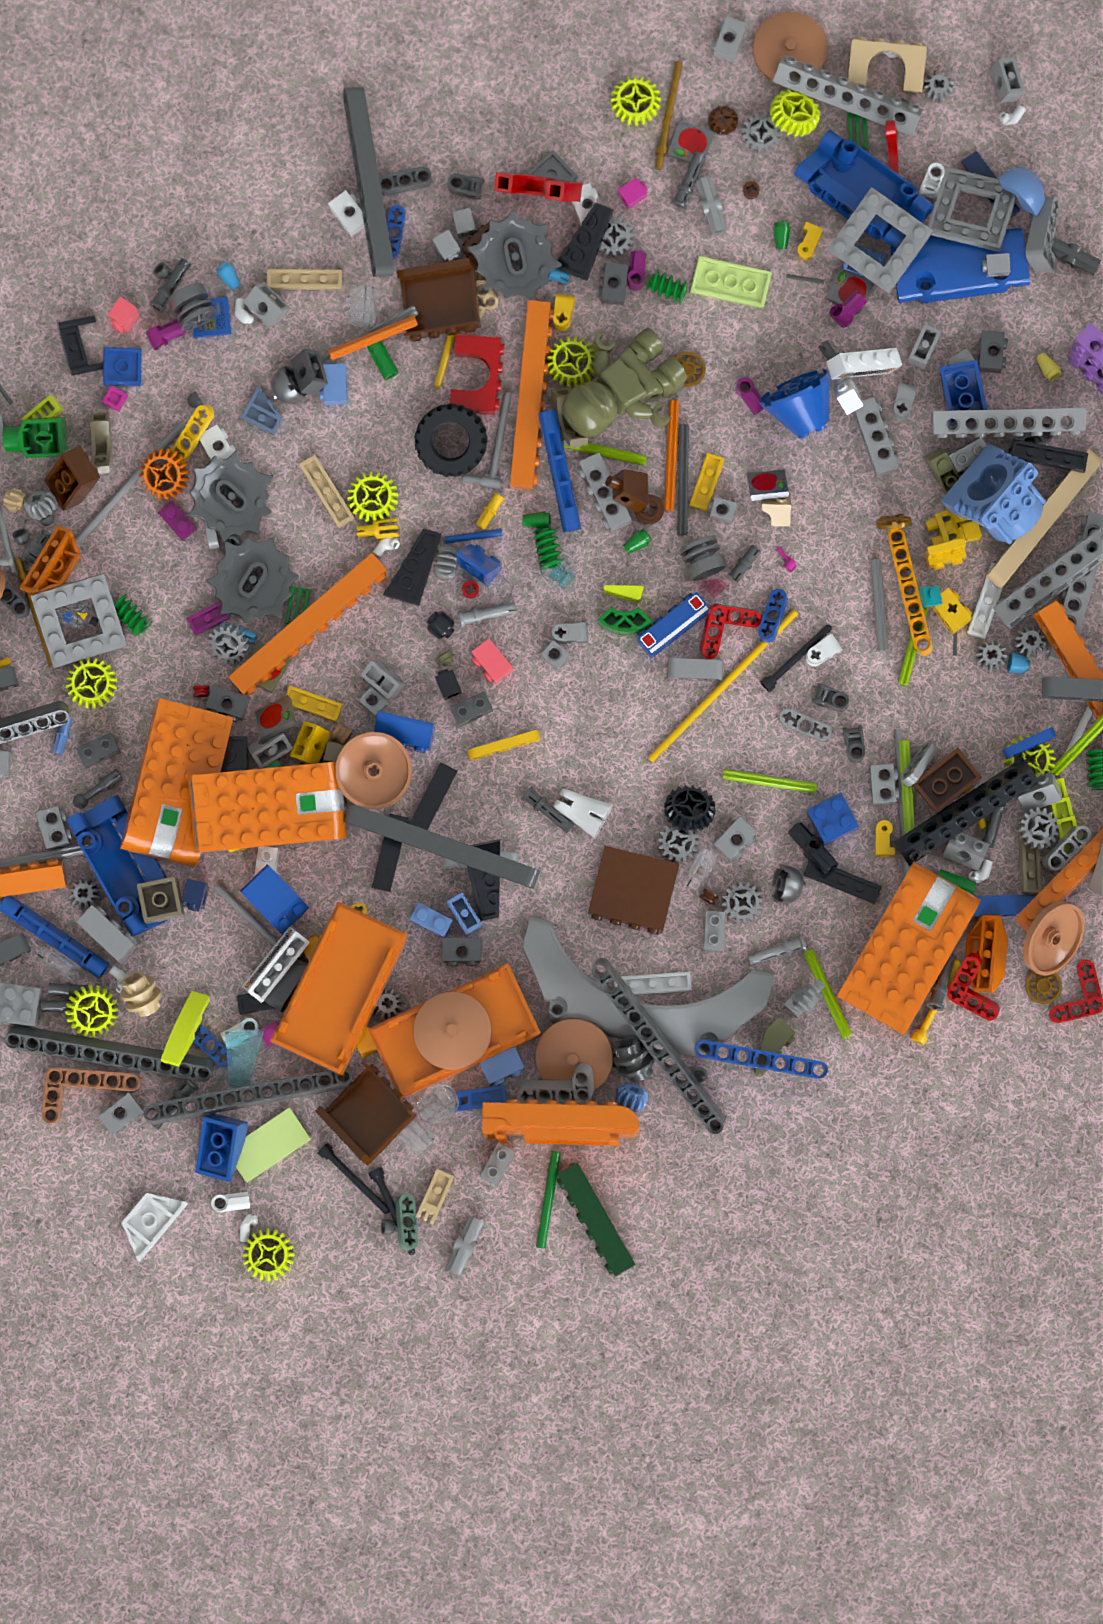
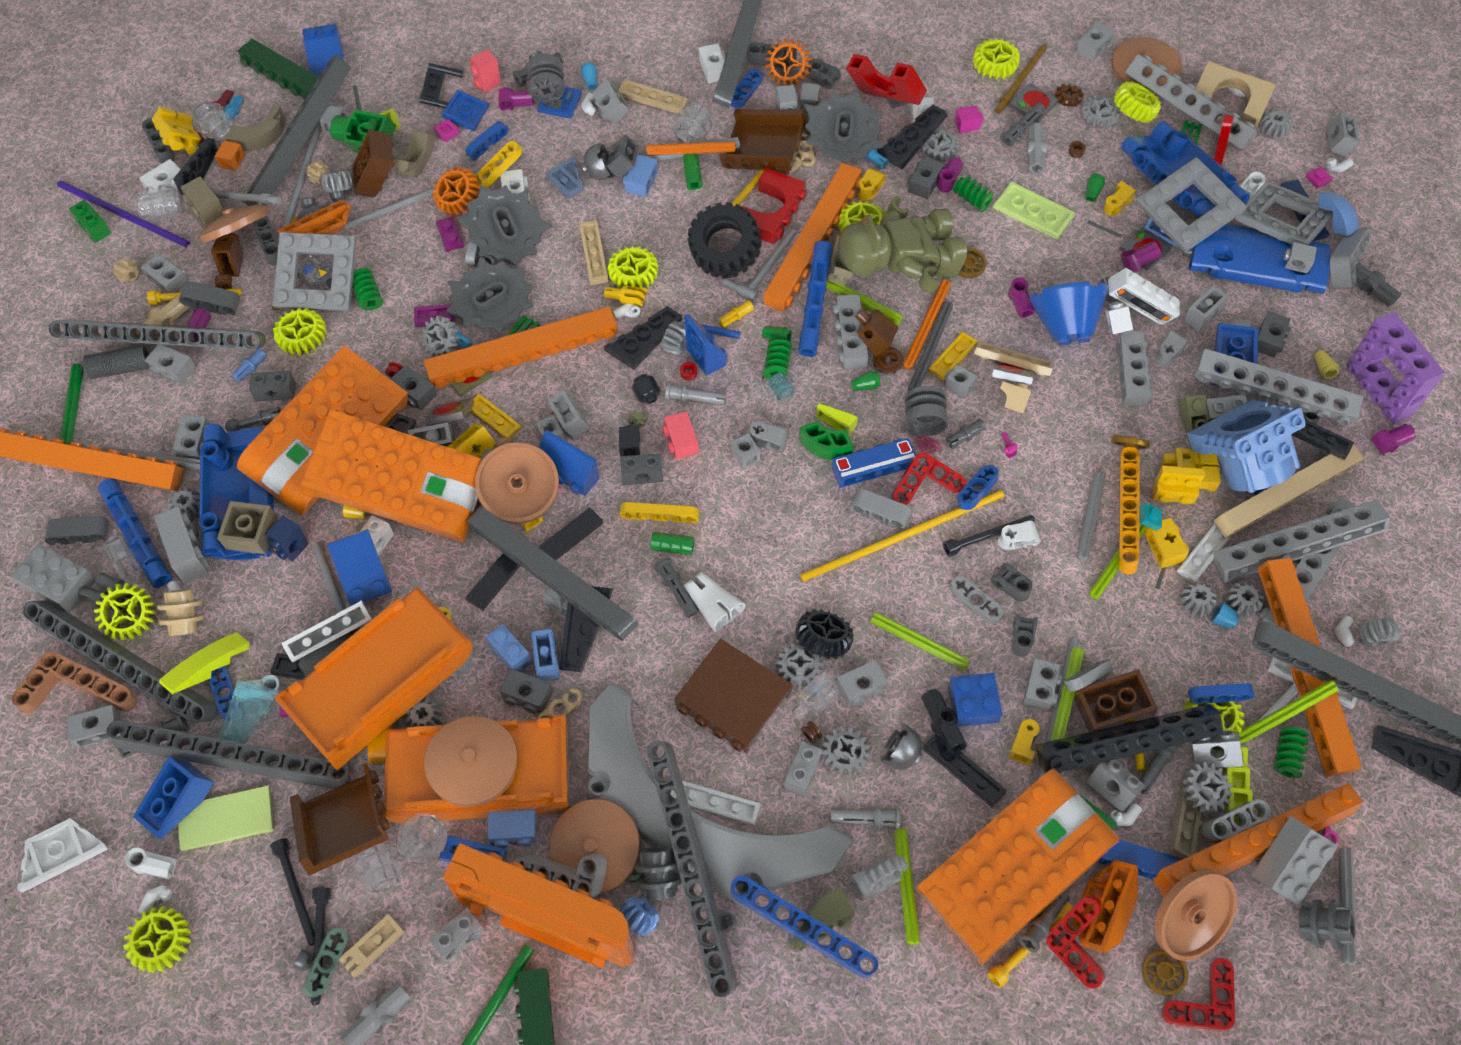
camera: 15 degrees right, 20 degrees down
(163, 392) = (479, 145): none -> blue beam
(442, 191) = (773, 59): none -> orange gear
(496, 946) = (569, 706): none -> tan piece
(527, 770) = (672, 543): none -> green axle
(764, 466) = (988, 351): none -> tan plate
(996, 138) = (1319, 177): none -> dark pink plate

